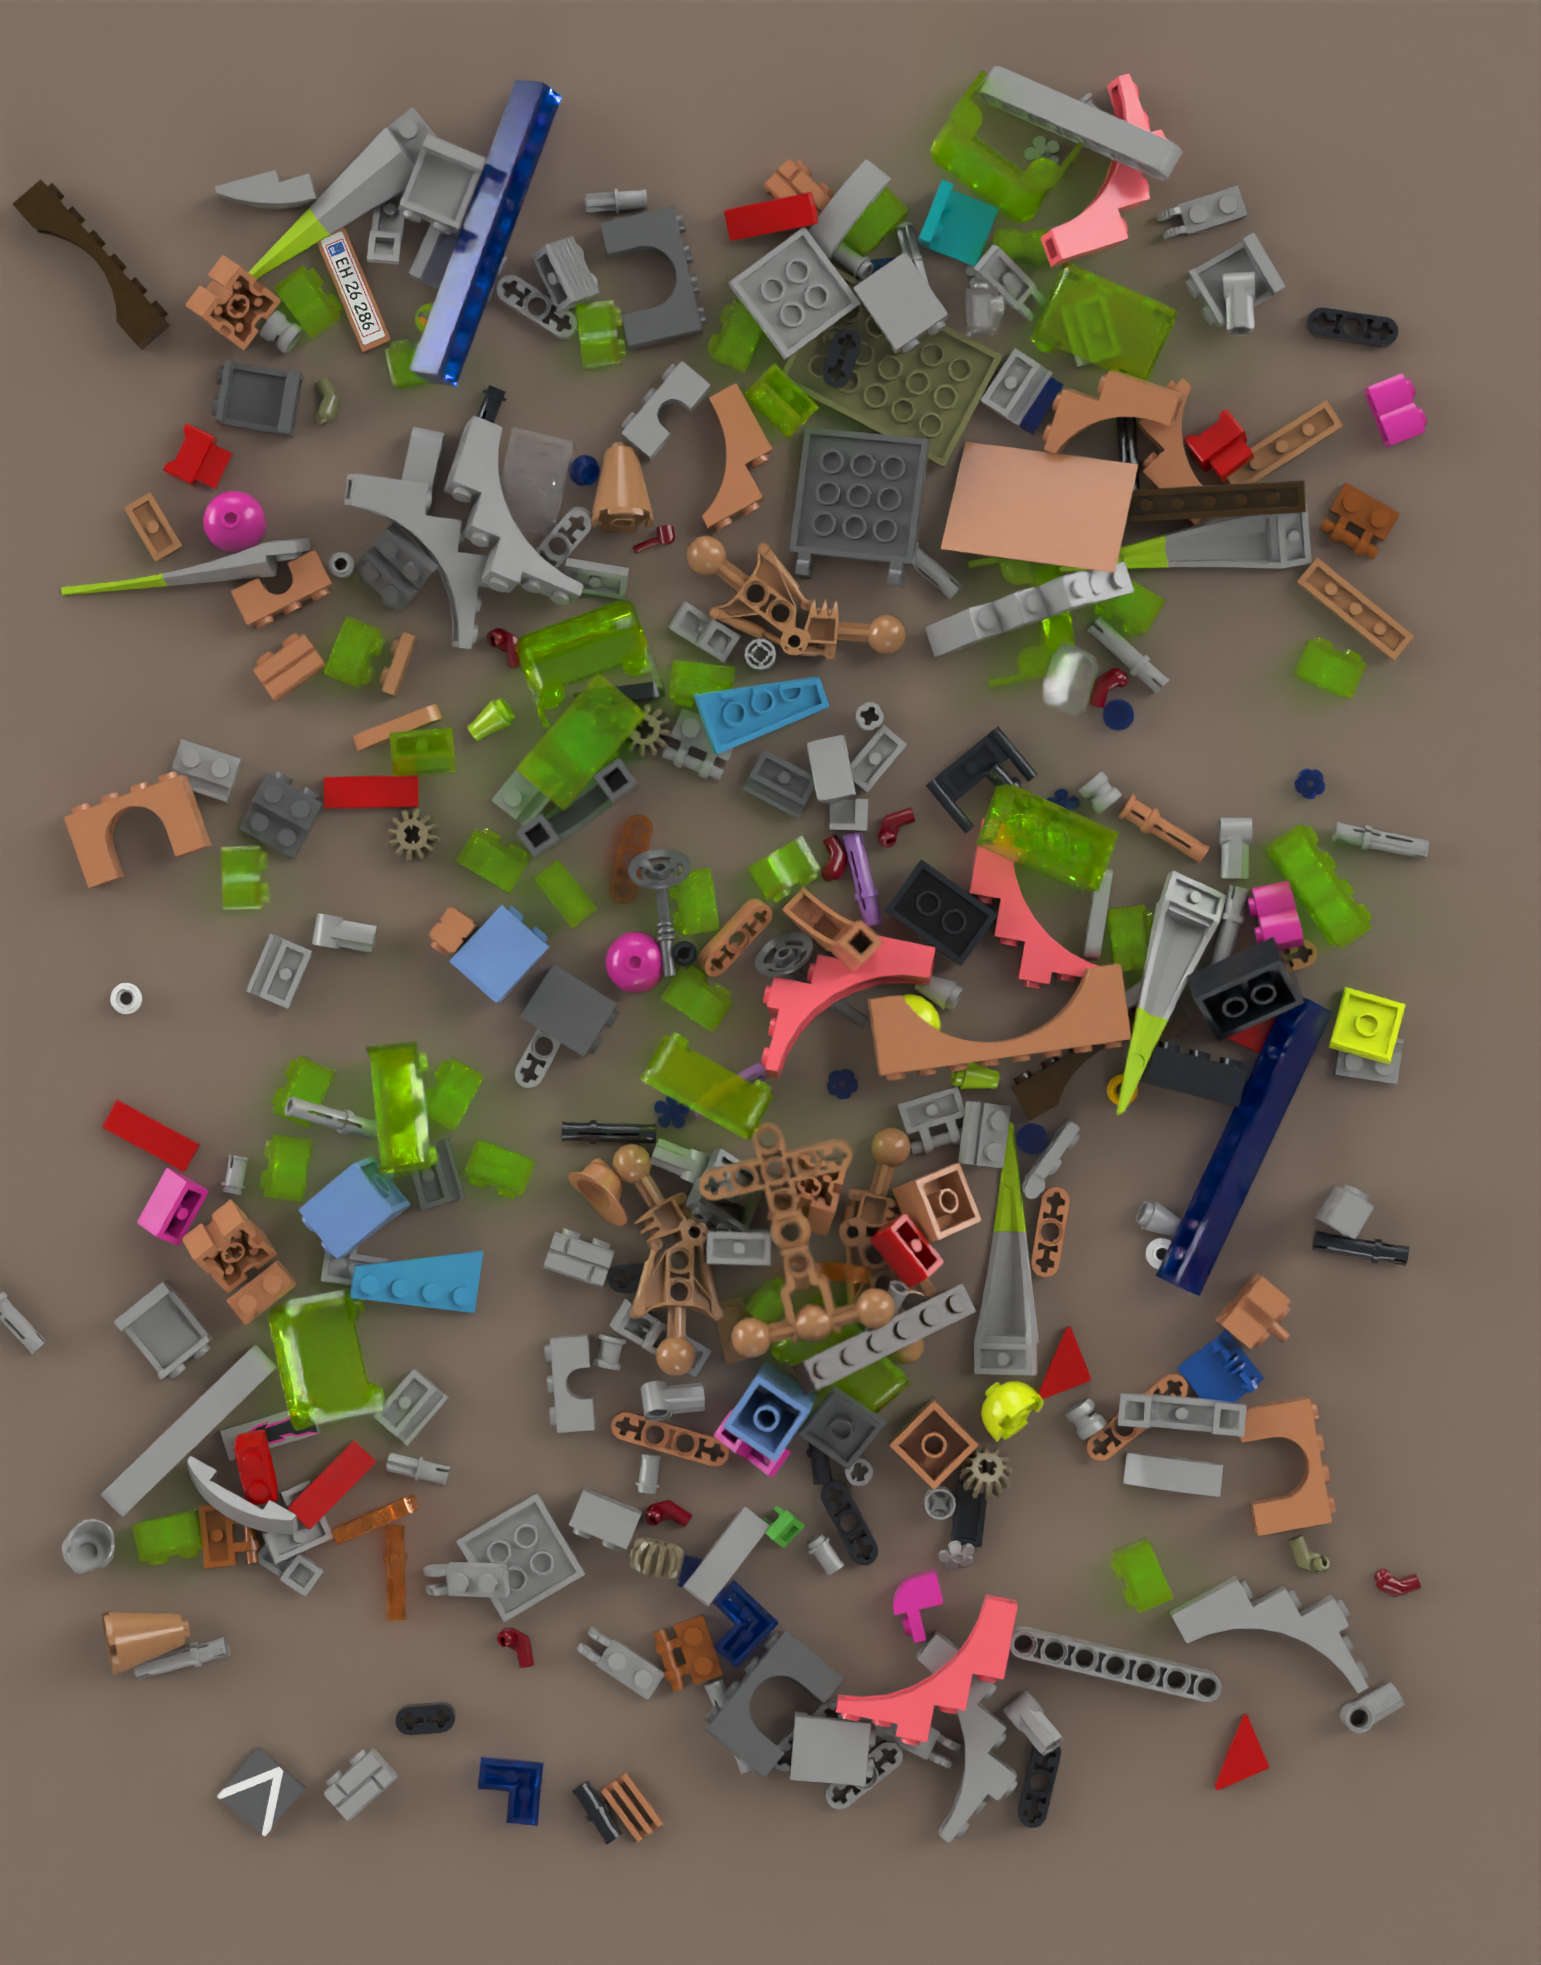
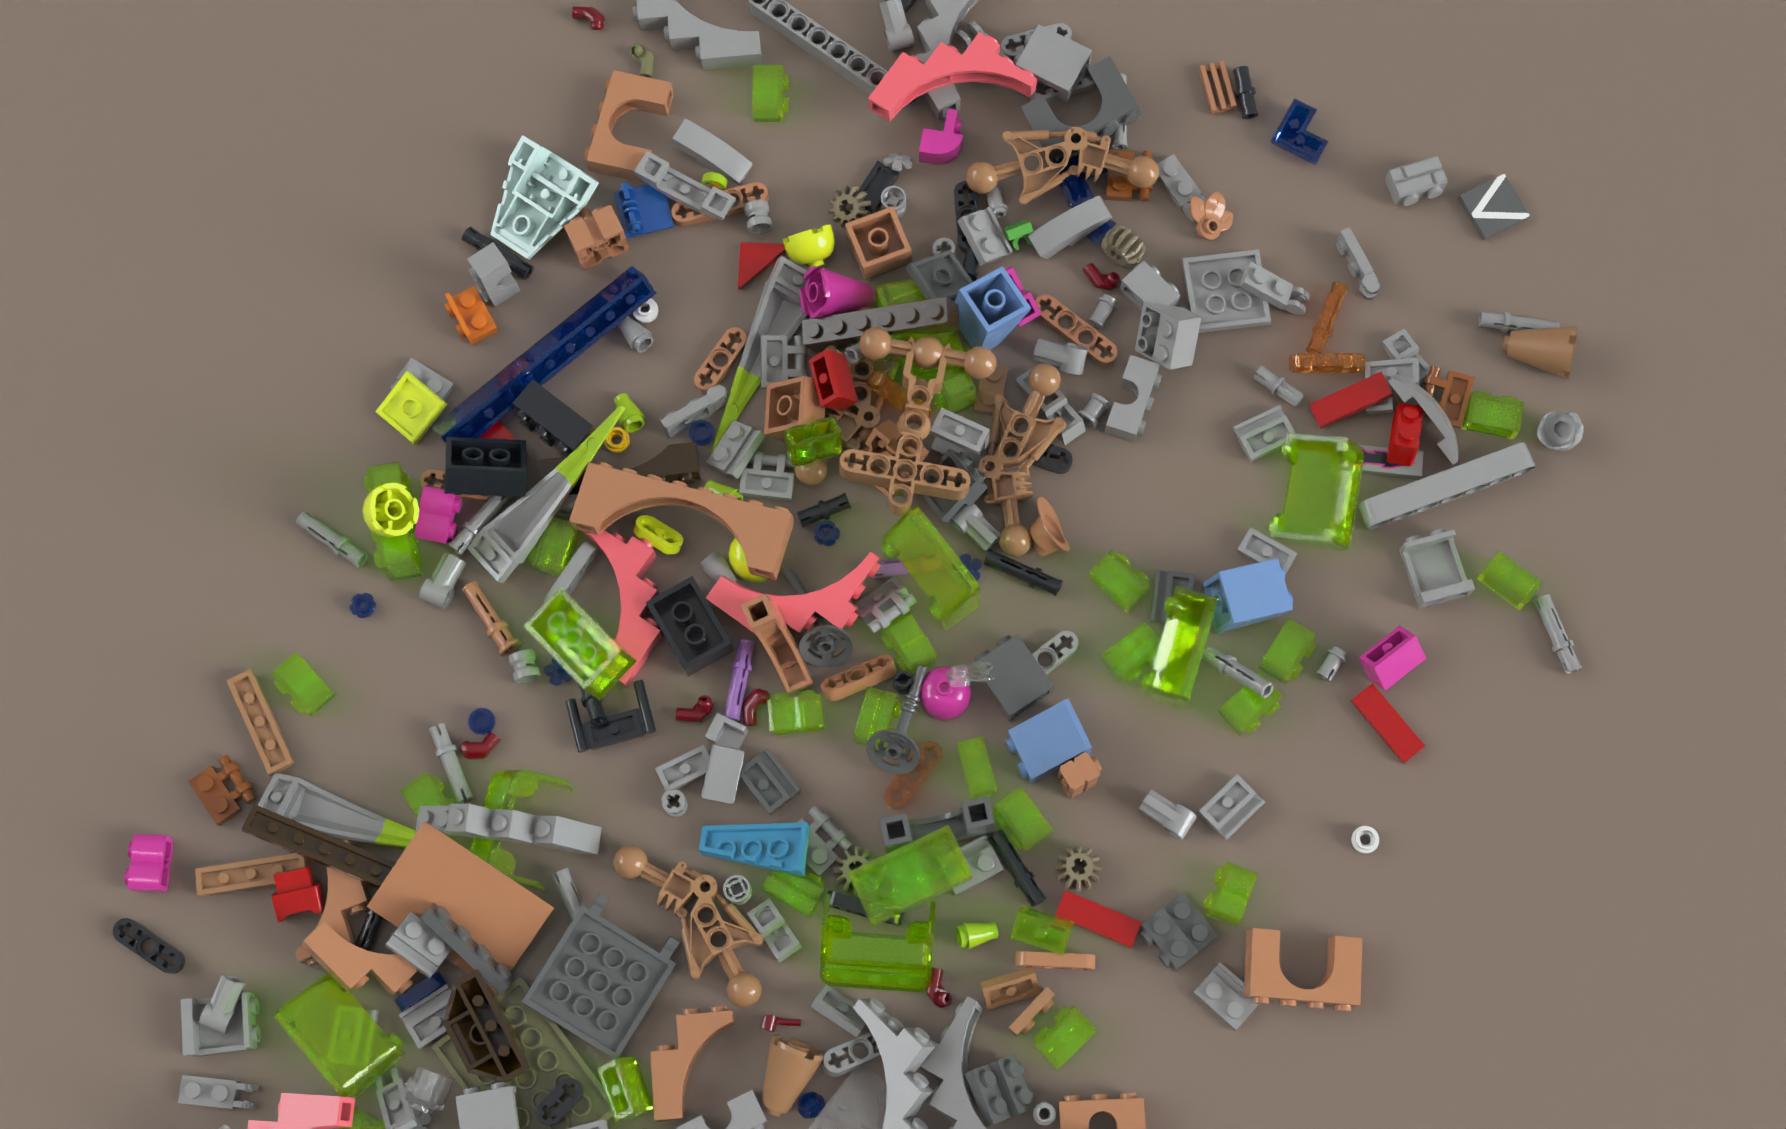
camera: 155 degrees left, 15 degrees down
(80, 1350) = (1509, 580): none -> clear neon green brick
(229, 1246) = (1359, 607): nougat brick -> none
(262, 1292) = (1346, 564): nougat brick -> none
(289, 666) = (1122, 1049): nougat brick -> none
(384, 1651) = (1358, 263): none -> light grey hinge
(425, 1710) = (1347, 208): black beam -> none
(430, 1282) = (1212, 517): dark azure wing -> none
(432, 679) = (1010, 988): none -> medium nougat plate
(473, 804) = (1020, 873): none -> black pin
(518, 1642) = (1253, 233): dark red arm -> none
(562, 1471) = (1168, 334): none -> light grey slope
(576, 1643) = (1210, 213): none -> nougat plate
(579, 1257) = (1086, 487): light grey brick -> none
(617, 987) = (963, 674): none -> clear plate
(733, 1644) = (1092, 158): none -> medium nougat piece
(748, 1033) = (880, 600): none -> light grey plate
(817, 1504) = (985, 236): none -> light grey plate
(856, 1108) = (823, 510): none -> black pin
(890, 1174) = (814, 441): none -> clear neon green brick
(950, 390) = (483, 1031): none -> dark brown wedge
(955, 1357) = (833, 293): none -> dark pink cone
(986, 1252) = (775, 359): none -> light grey plate
(1012, 468) = (461, 942): none -> dark grey plate
(1024, 1001) = (658, 534): none -> neon yellow plate
(1062, 449) = (418, 945): none -> light grey plate
(1070, 679) = (504, 761): clear slope -> none
(1123, 1125) = (632, 418): none -> lime cone
(1154, 1438) = (714, 179): none -> lime tile
(1315, 884) = (390, 510): none -> neon yellow cylinder
(1342, 1332) = (538, 197): none -> light aqua wedge
(1354, 1162) = (472, 315): none -> orange bracket

